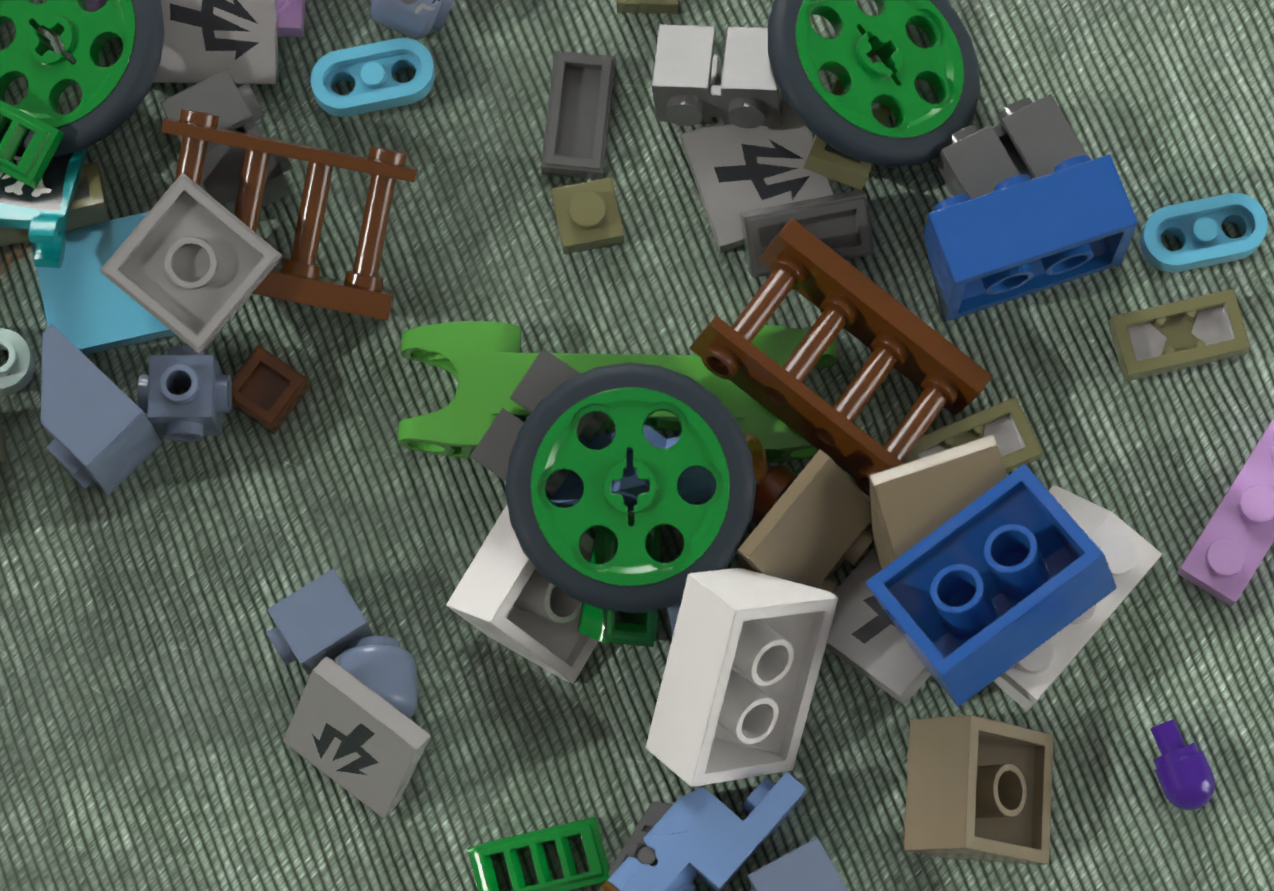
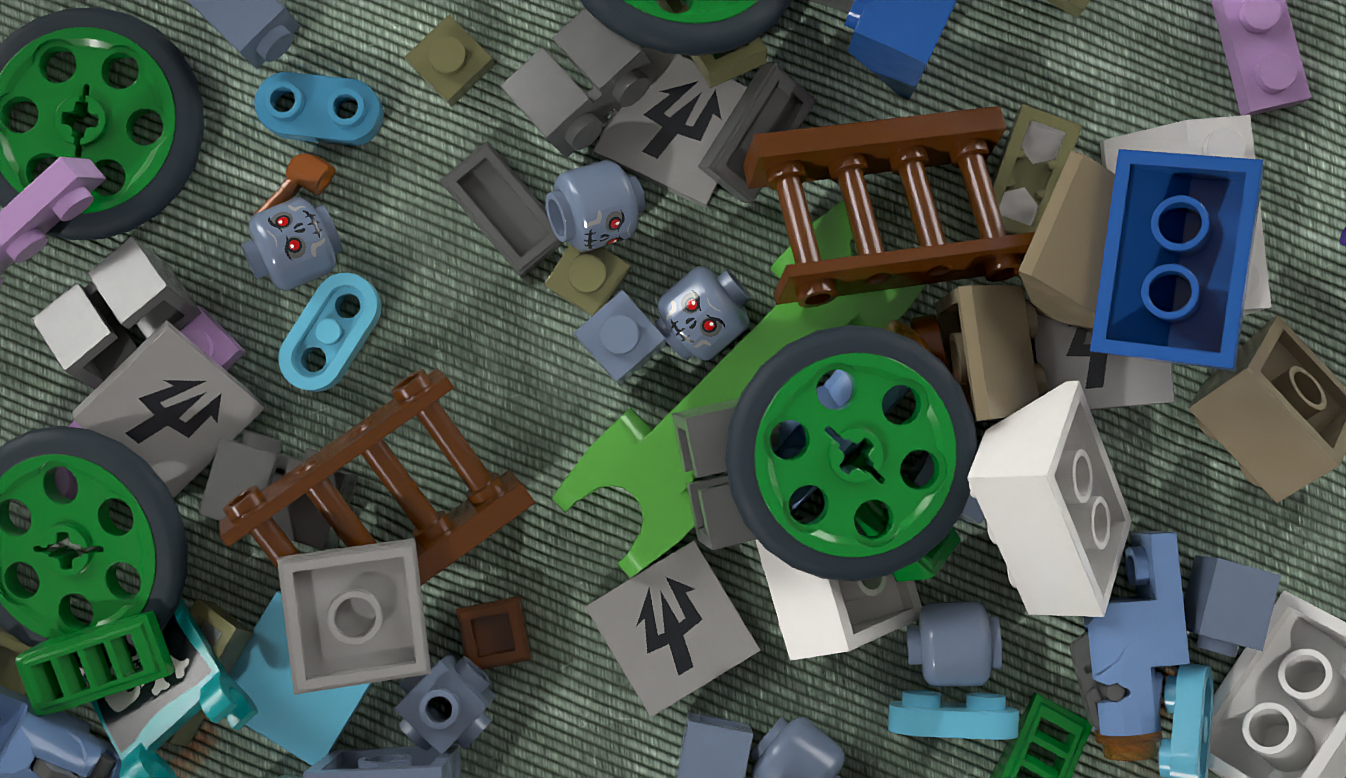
camera: 50 degrees left, 10 degrees up
(390, 509) = (672, 628): none -> light grey tile
(500, 744) = (979, 718): none -> medium azure plate
(562, 274) = (620, 338): none -> sand blue brick
(572, 714) = (955, 643): none -> sand blue head
(638, 315) = (703, 313): none -> sand blue head
(640, 168) = (595, 205): none -> sand blue head

